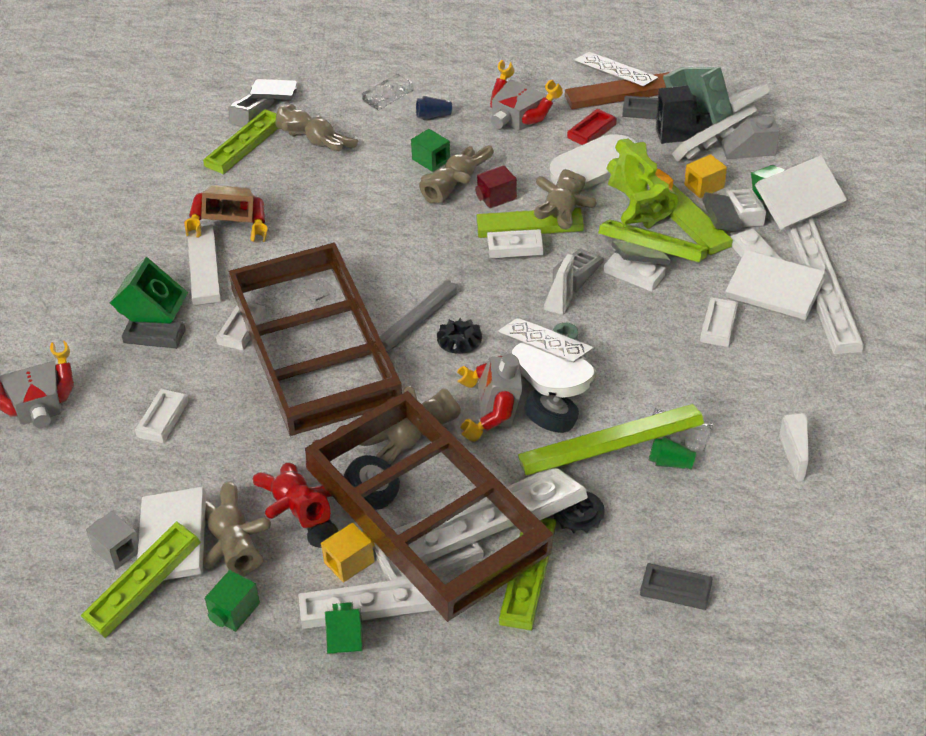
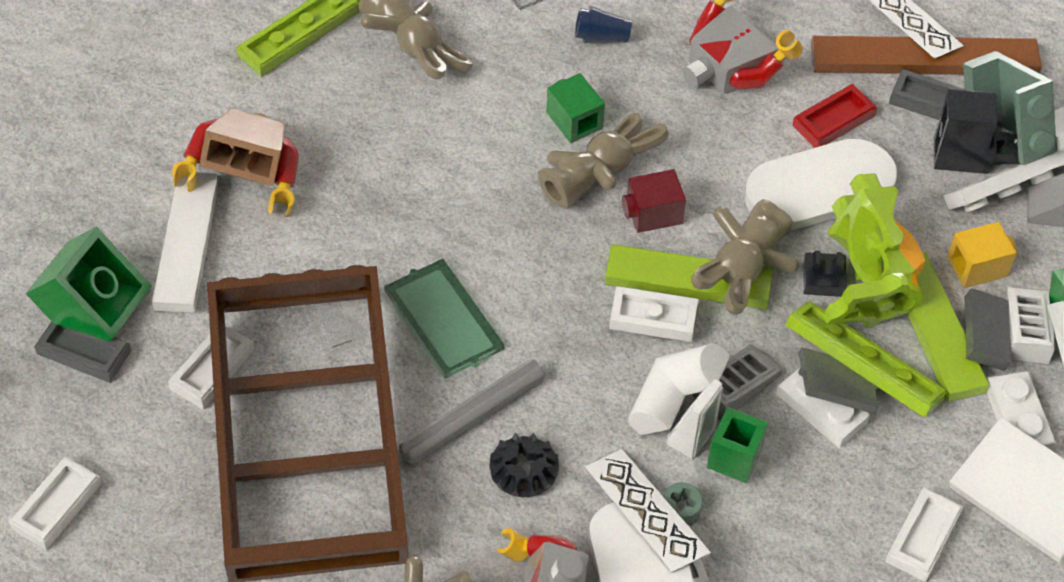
camera: 10 degrees right, 10 degrees up
(383, 273) = (444, 318): none -> clear green piece
(539, 270) = (670, 381): none -> white brick
(590, 295) = (737, 445): none -> green brick
(612, 205) = (824, 273): none -> black tile

